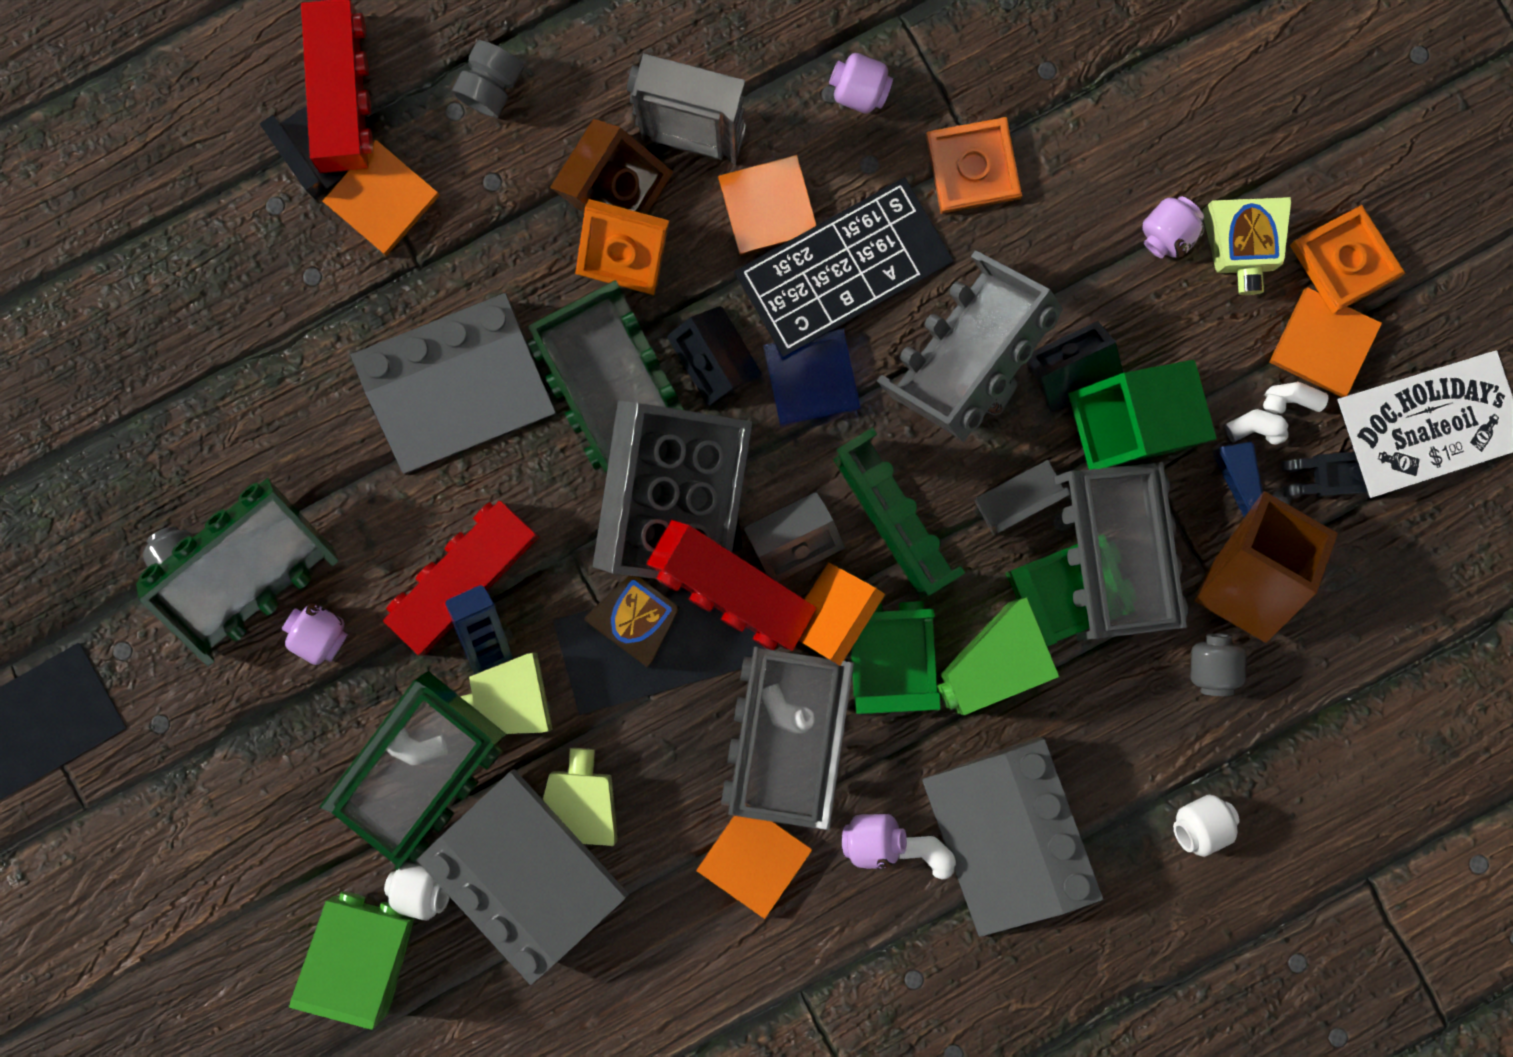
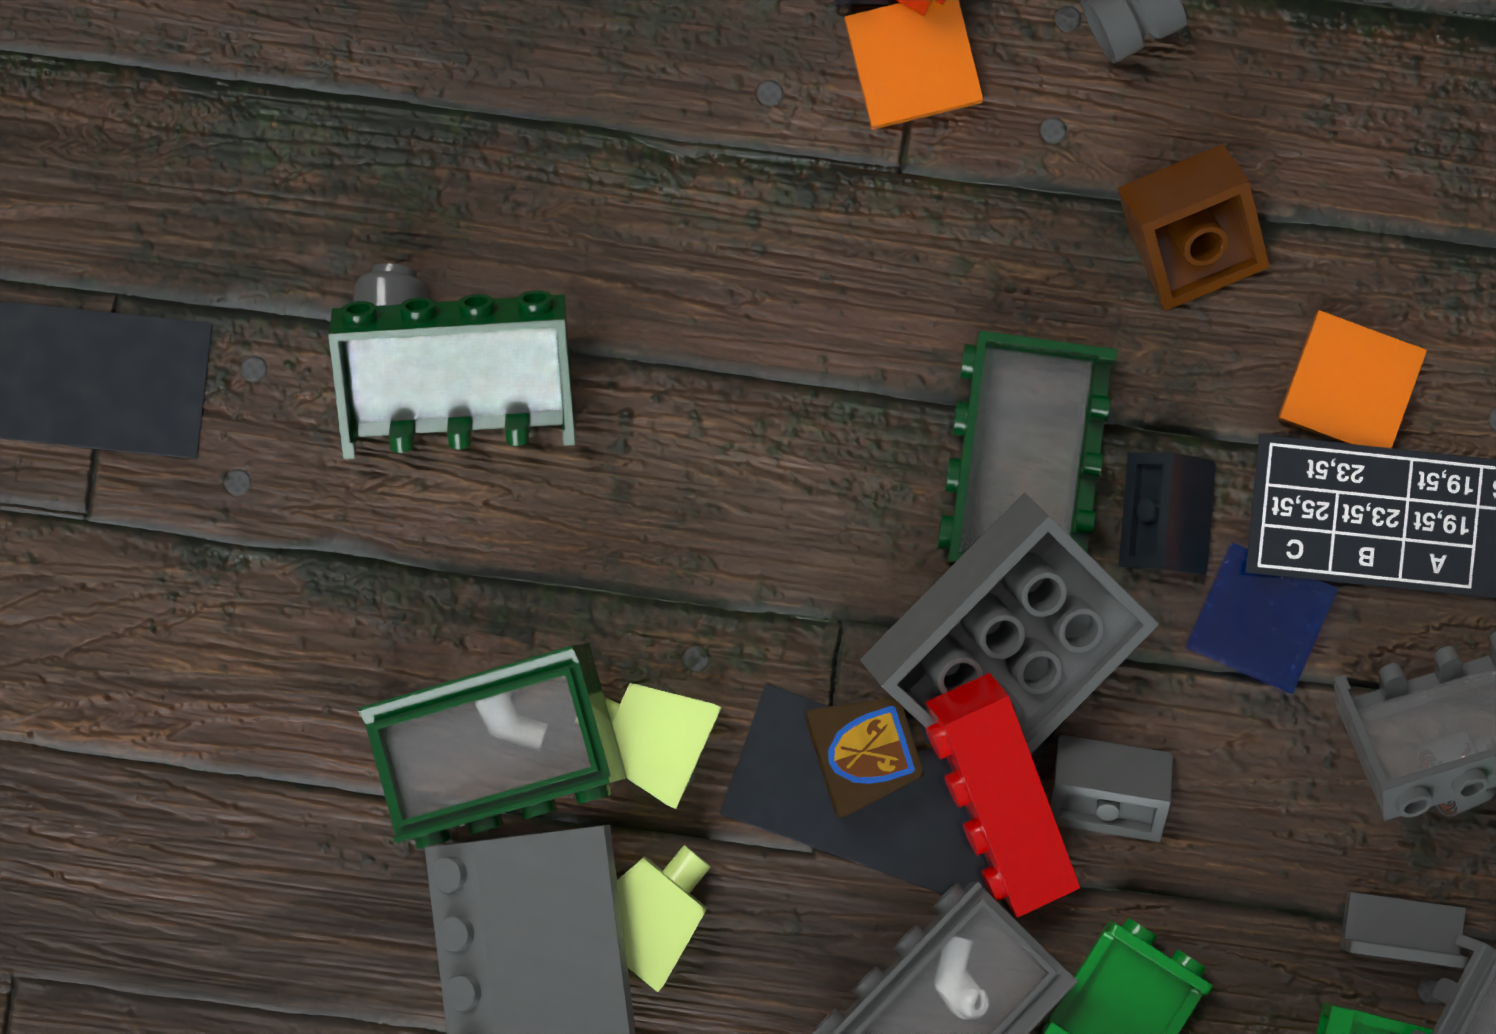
camera: 35 degrees right, 0 degrees up
(314, 634) = (488, 507): lavender head -> none
(353, 961) = (274, 909): bright green slope -> none
(415, 892) = (395, 882): white head -> none
(453, 383) = (847, 334): dark grey slope -> none
(471, 561) = (698, 561): red brick -> none
(478, 607) = (679, 634): dark blue slope -> none
(621, 246) = (1151, 315): orange tile -> none
(688, 107) = (1343, 217): dark grey window -> none
(841, 612) = (1103, 916): orange tile -> none
(894, 515) = (1243, 850): dark green window -> none

